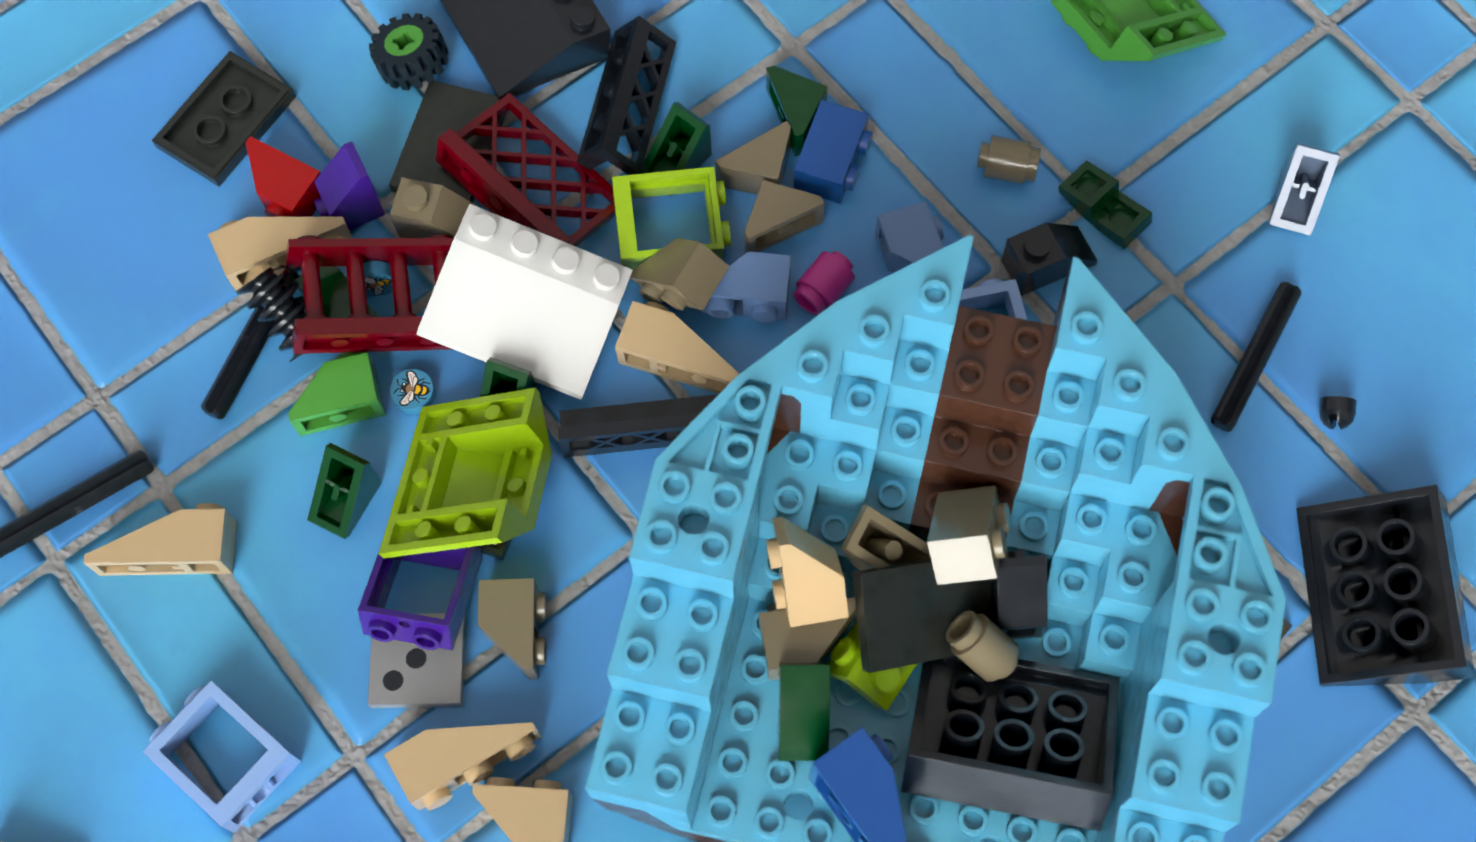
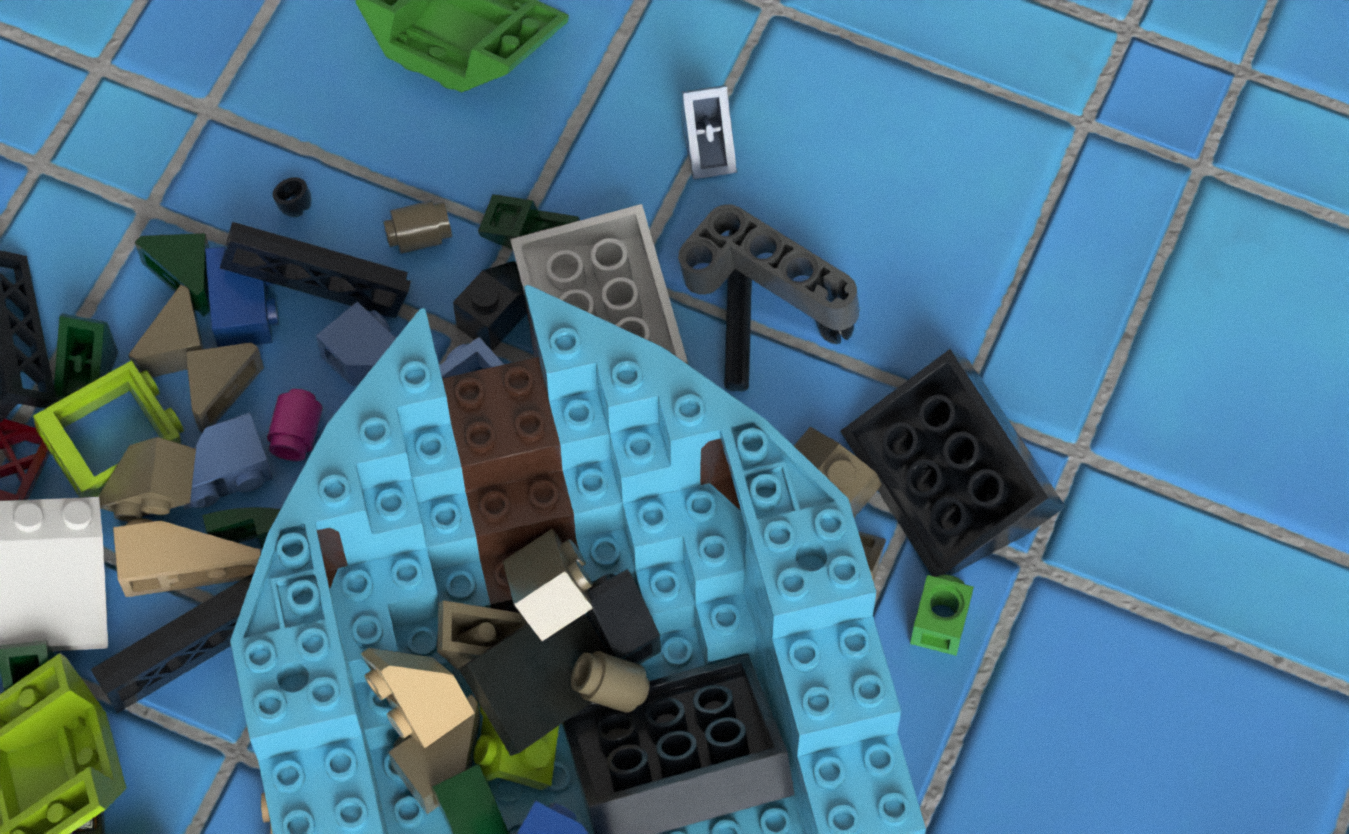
camera: 30 degrees left, 5 degrees down
(736, 345) = (241, 523): none -> dark green slope
(903, 158) = (314, 270): none -> black fence
(923, 84) = (300, 196): none -> black hinge
(1152, 273) = (606, 270): none -> white slope
(1281, 540) = (841, 467): none -> dark tan slope
(1302, 736) = (939, 632): none -> bright green brick
(1342, 384) = (825, 296): none -> dark grey beam

